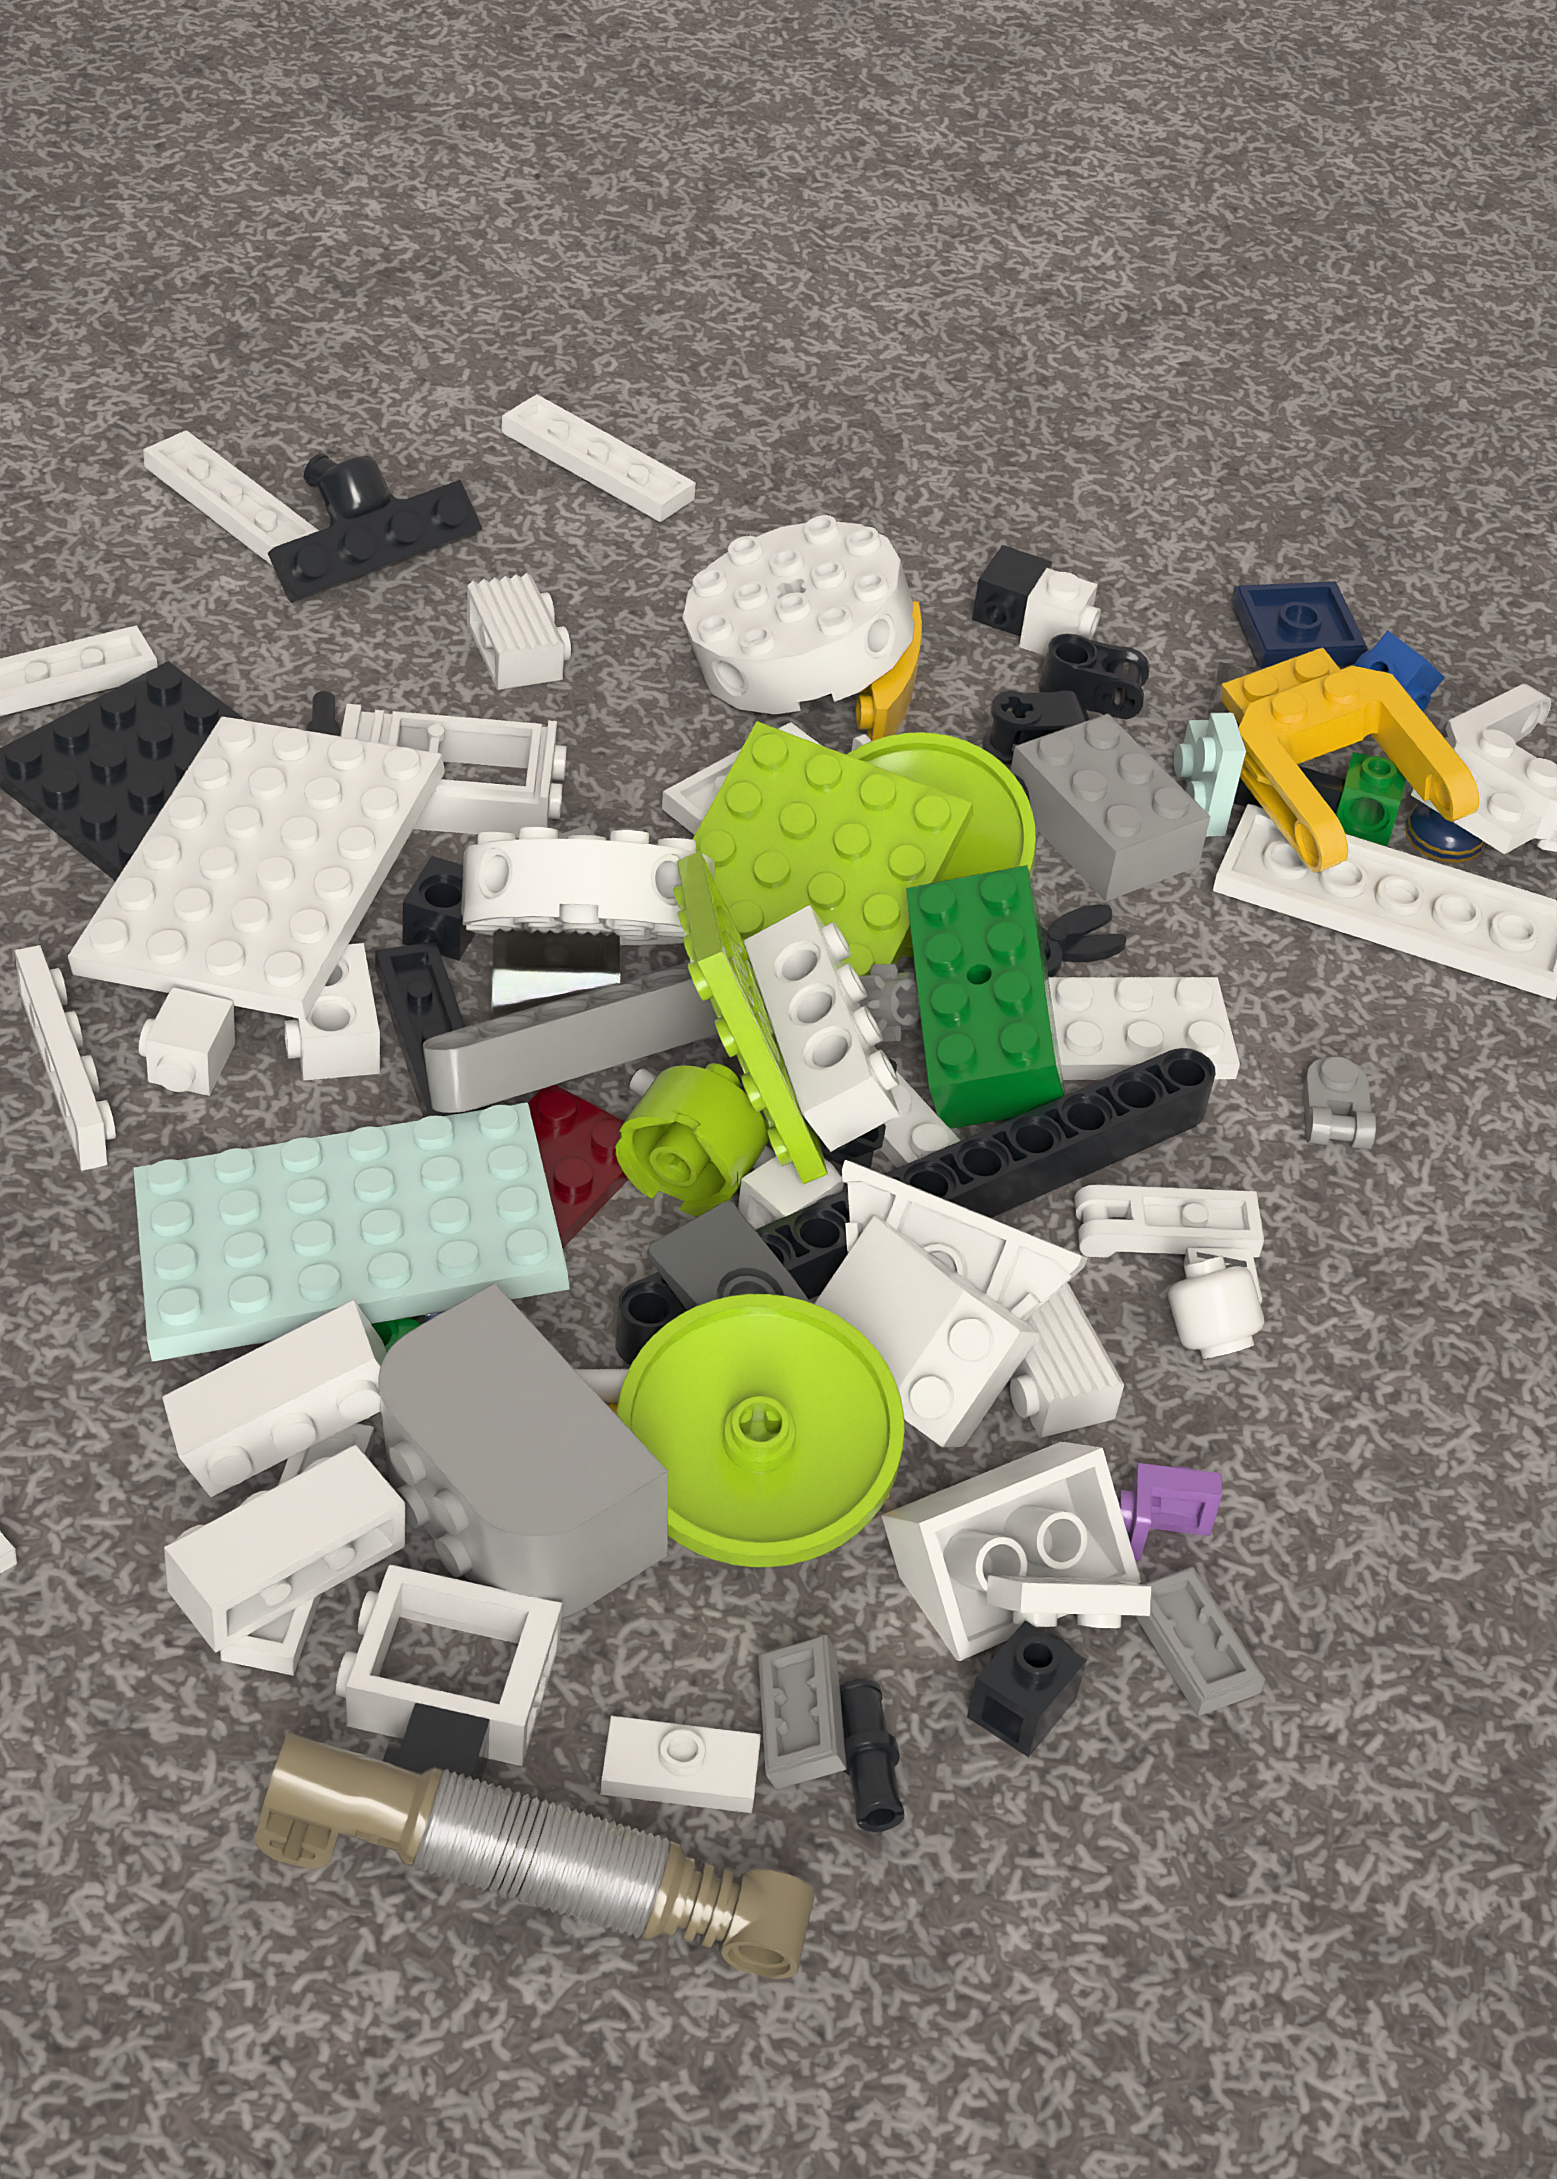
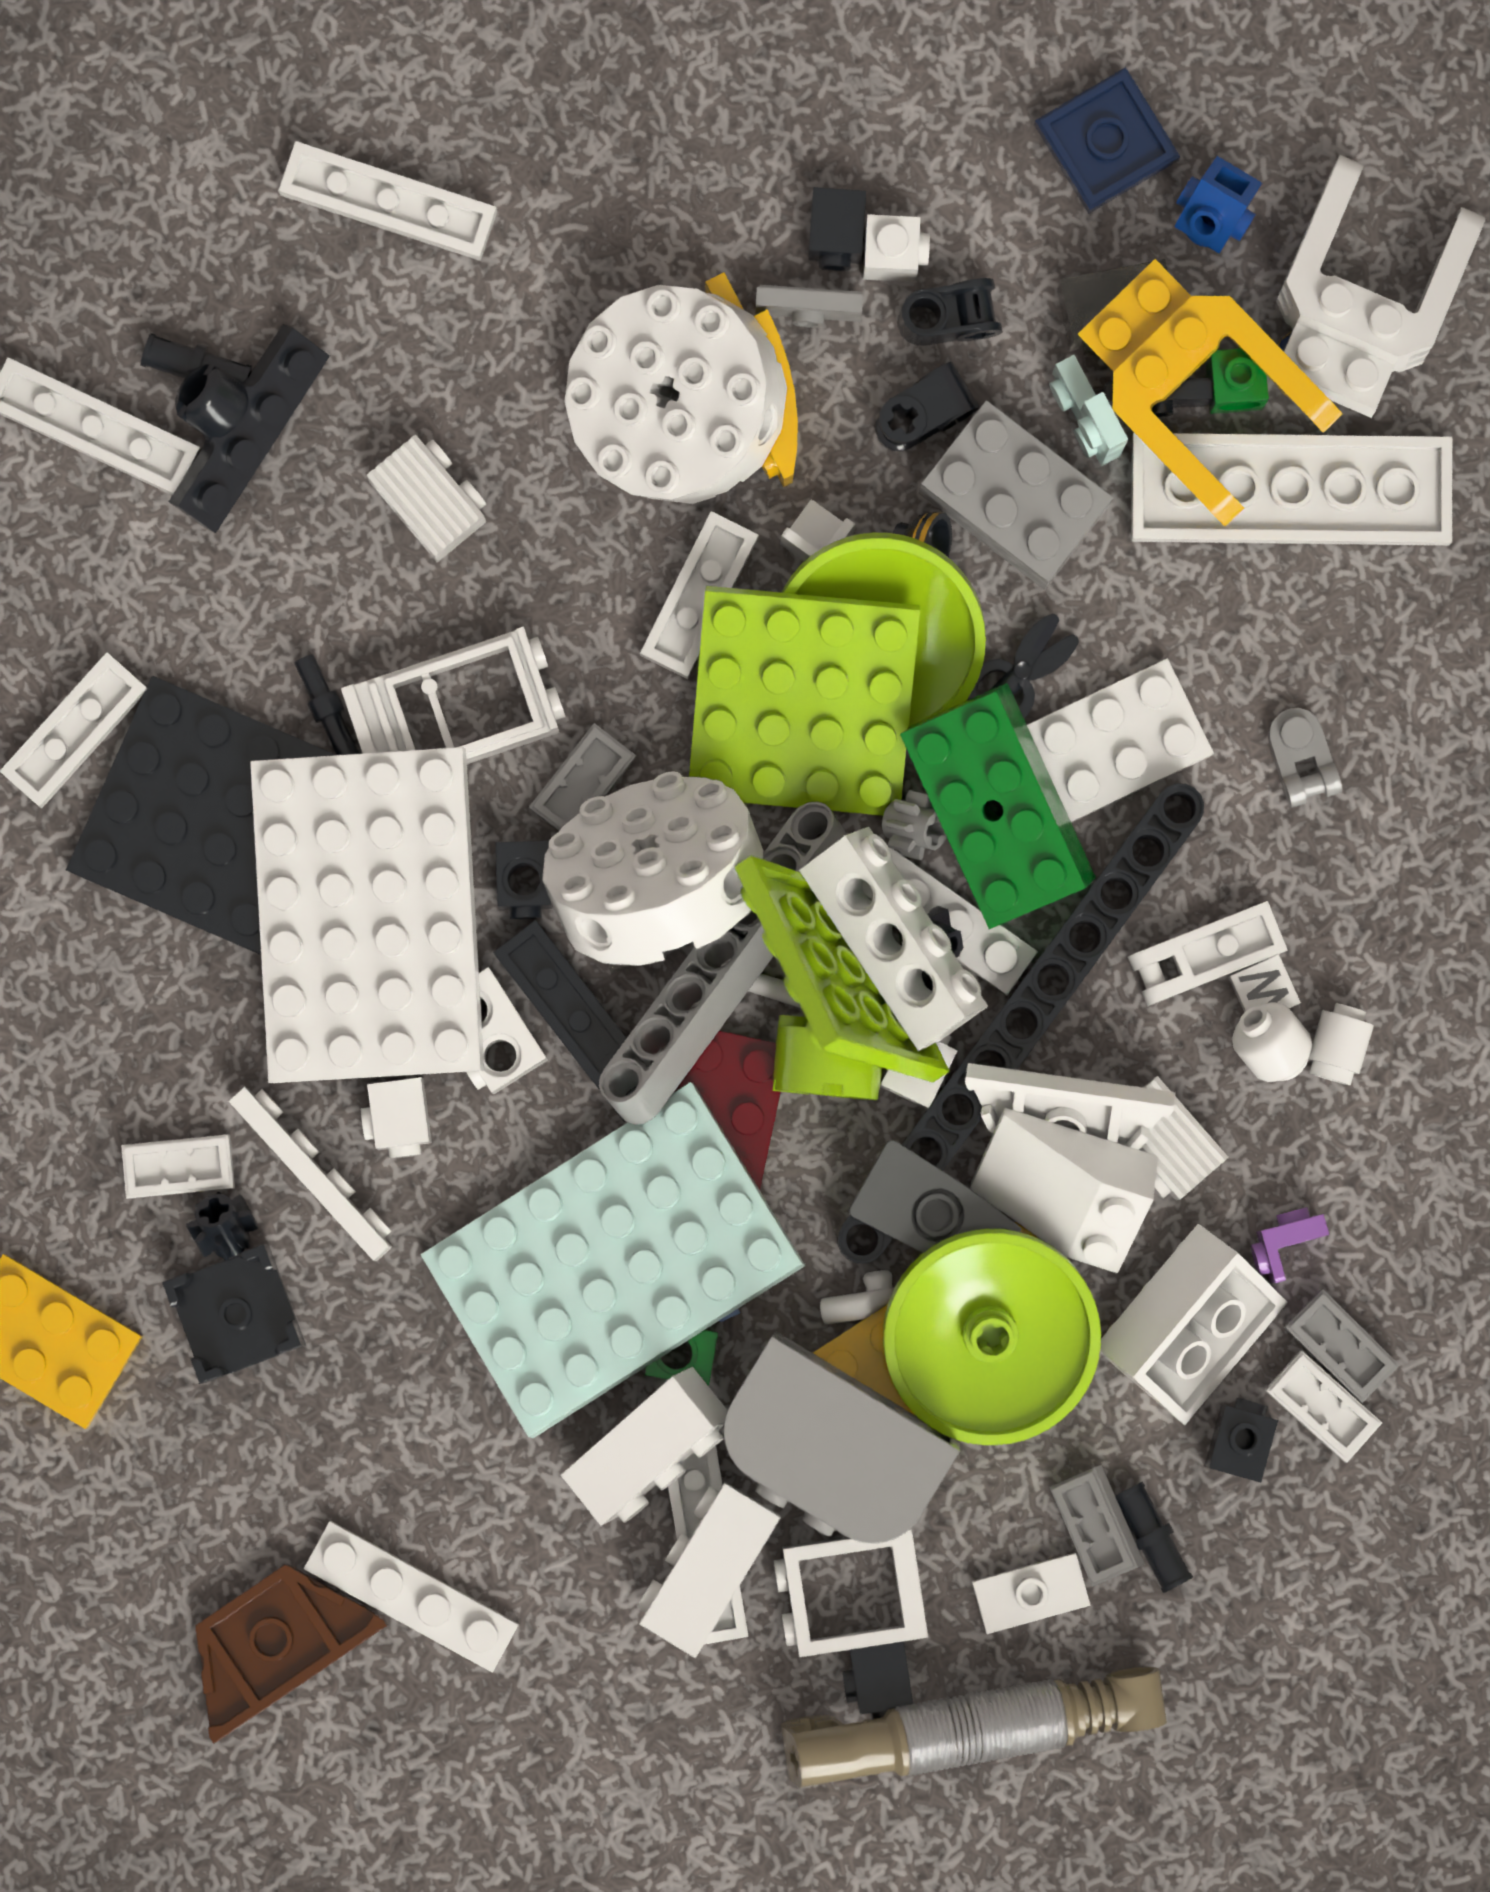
camera: 20 degrees left, 40 degrees up
(965, 629) = (809, 305): none -> light grey plate
(1095, 1600) = (1247, 1362): white plate -> none
(1149, 1696) = (1323, 1406): none -> white plate
(1296, 1348) = (1340, 1044): none -> white brick

